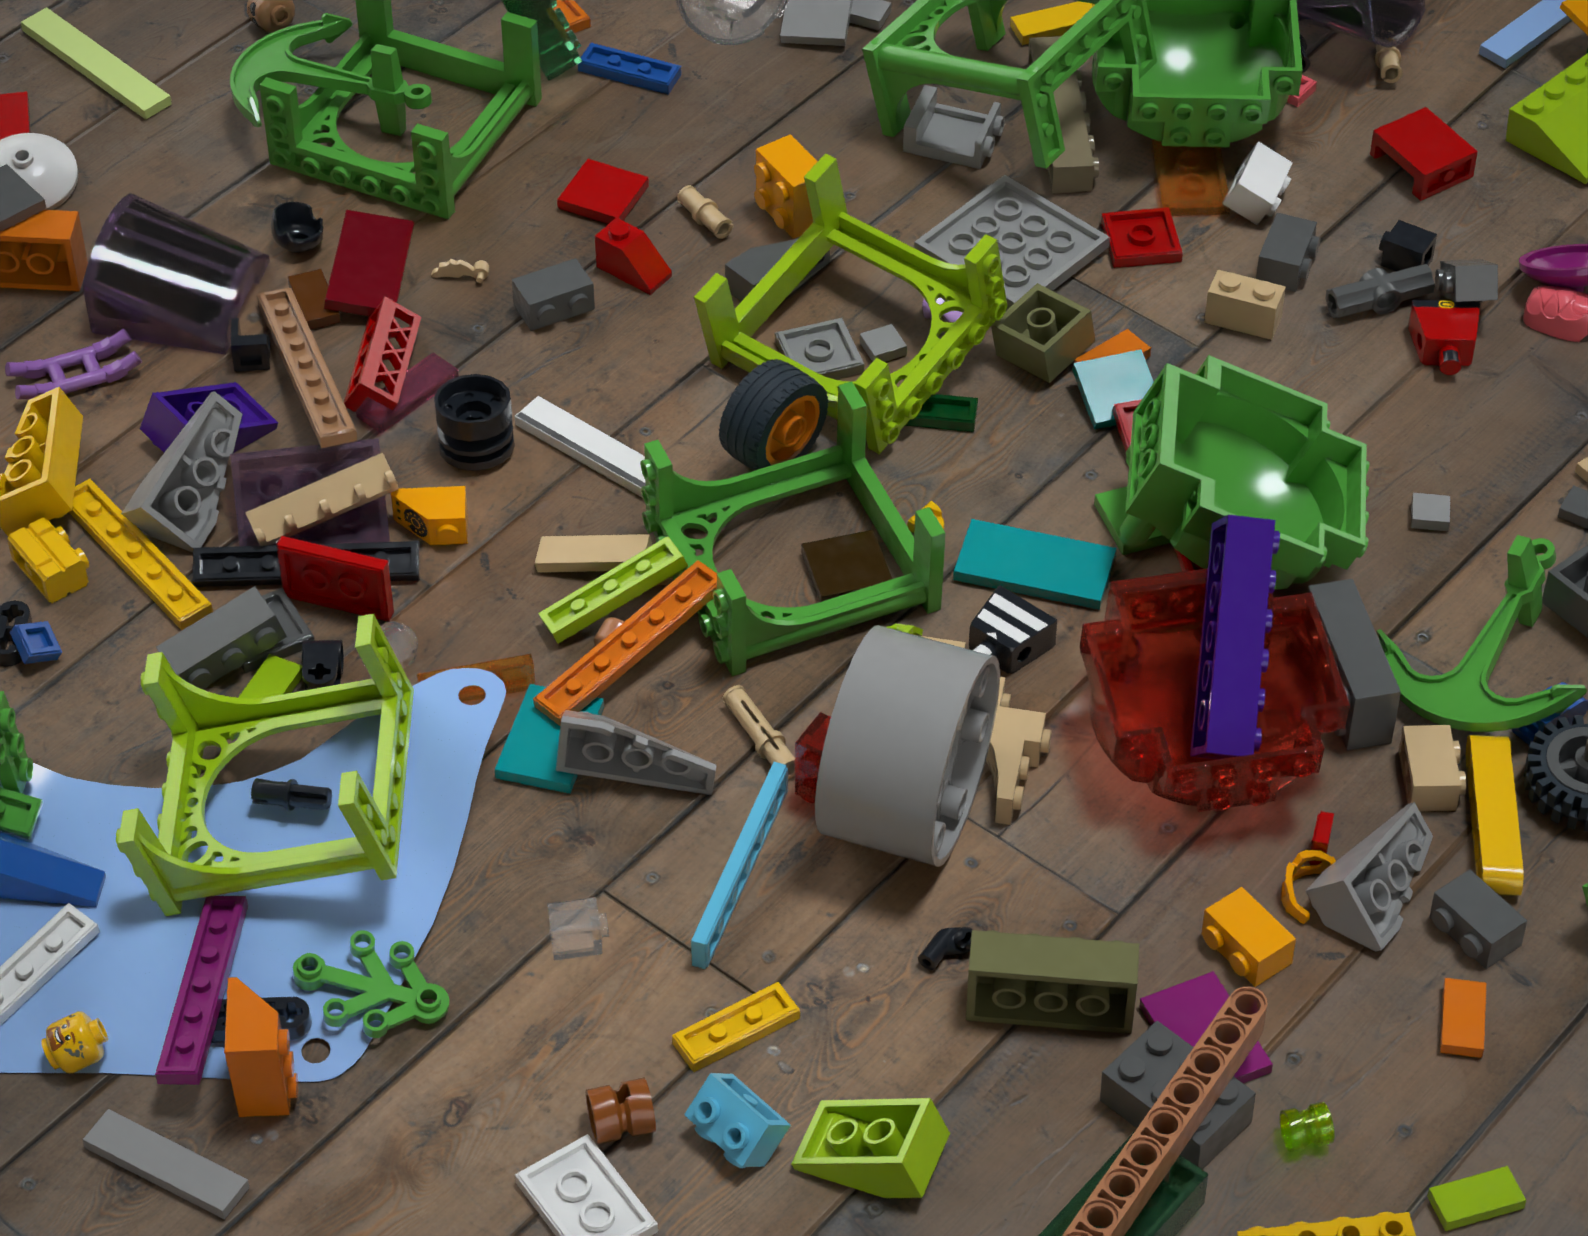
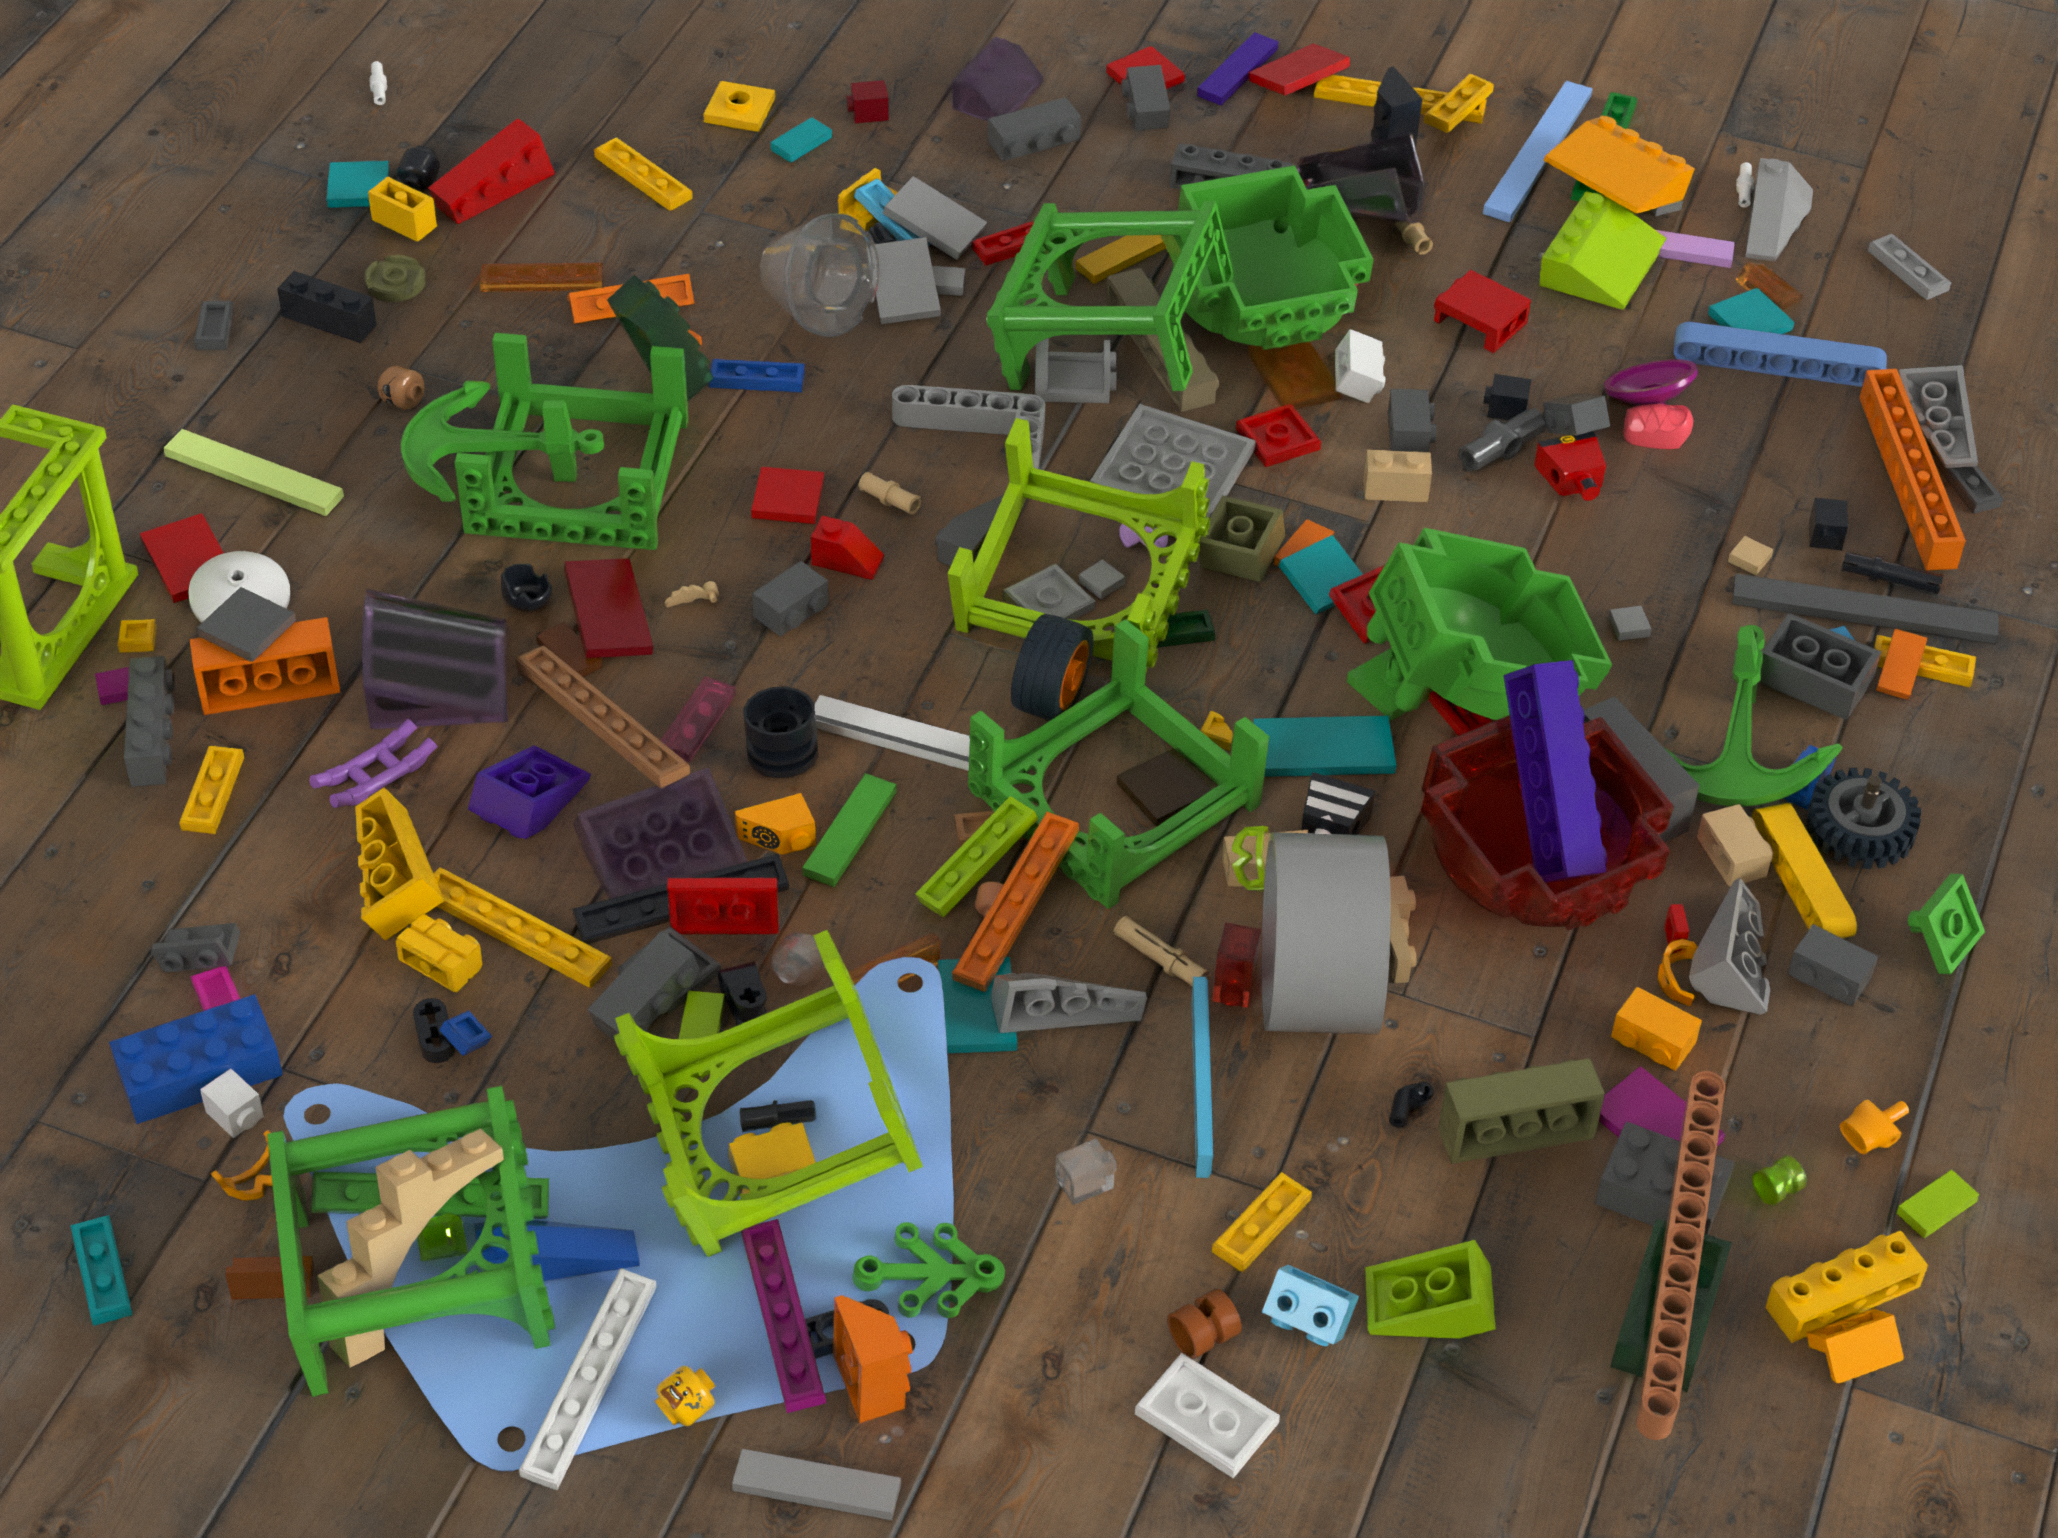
camera: 20 degrees left, 0 degrees up
(184, 486) = (538, 855): light grey wedge -> none
(249, 351) = (533, 713): black panel -> none
(266, 828) = (770, 1153): none -> yellow brick
(322, 500) = (677, 836): tan hinge -> none
(377, 347) = (654, 689): red fence -> none
(505, 535) = (849, 830): none -> bright green tile
(588, 552) = (936, 827): tan tile -> none
(781, 184) = (963, 453): light orange brick -> none
(868, 159) = (969, 411): none -> light grey beam
(1440, 1099) = (1871, 1128): none -> light orange piece
(1463, 1017) = (1856, 1052): orange tile -> none

